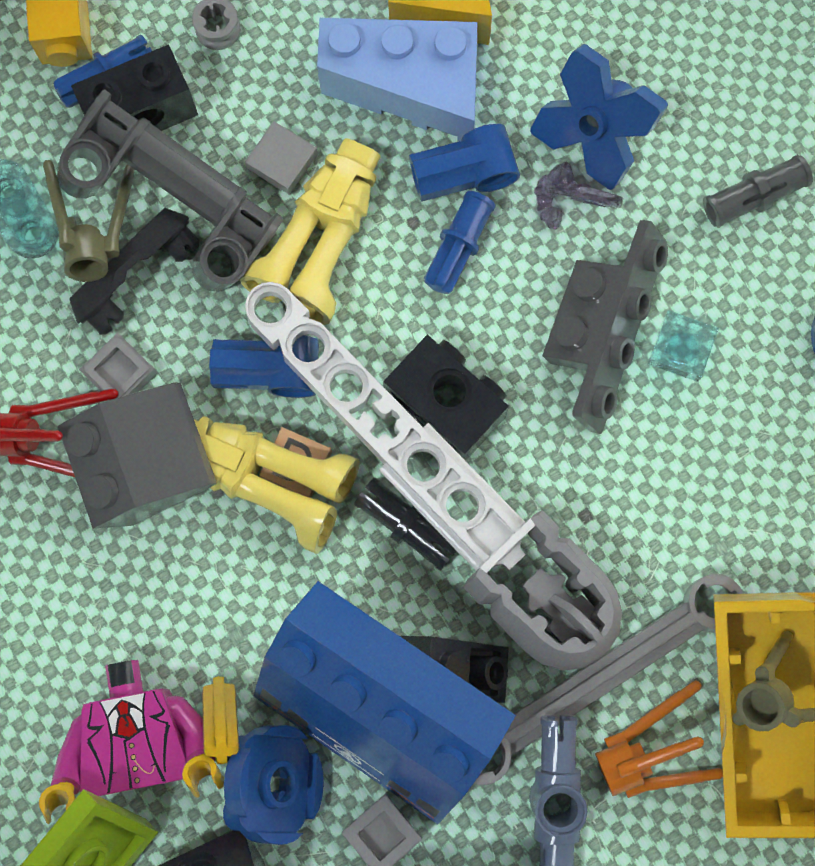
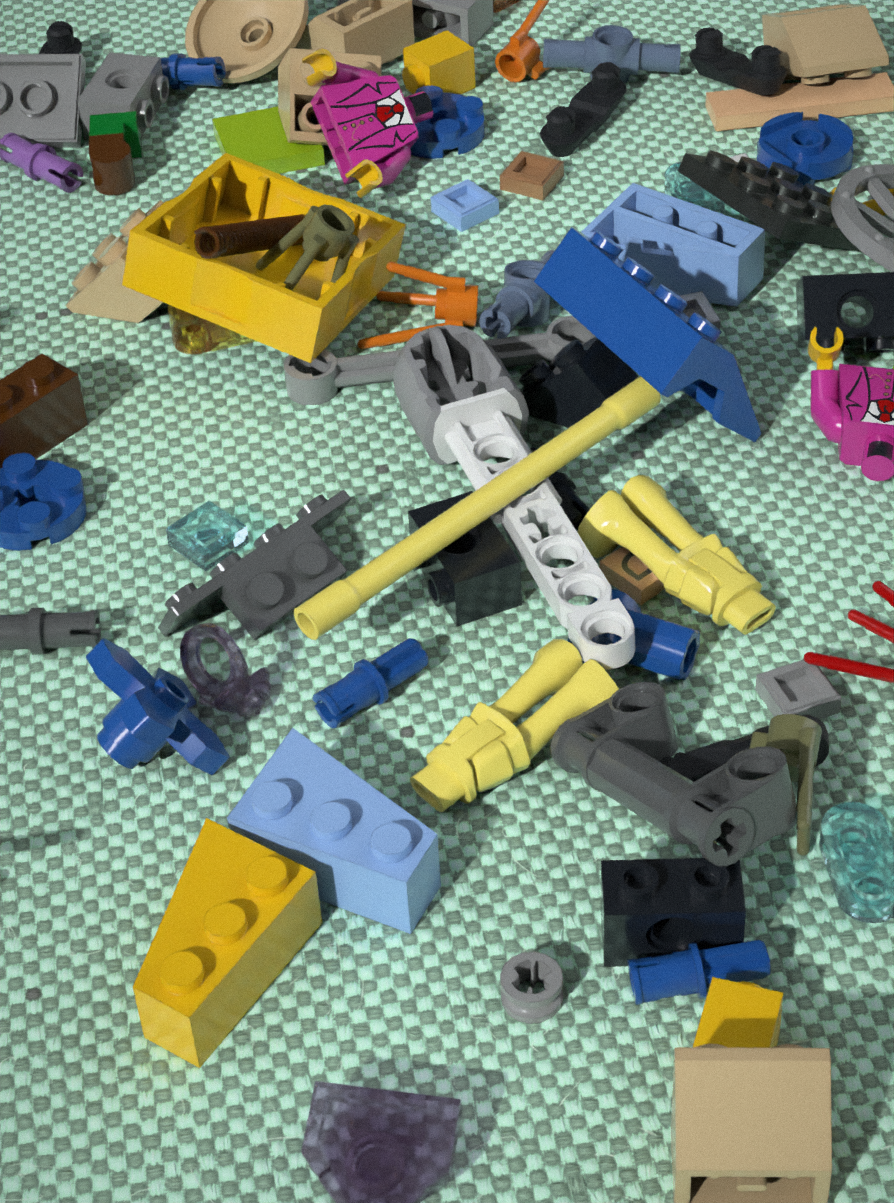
camera: 155 degrees left, 35 degrees down
(136, 456) = (803, 583): dark grey slope -> none
(220, 720) = (796, 394): yellow axle -> none
(251, 805) = (774, 345): blue plate -> none
(281, 158) = (523, 824): light grey tile -> none
(477, 161) = (351, 739): blue piece -> none
(498, 253) = (347, 595): none -> light yellow piece

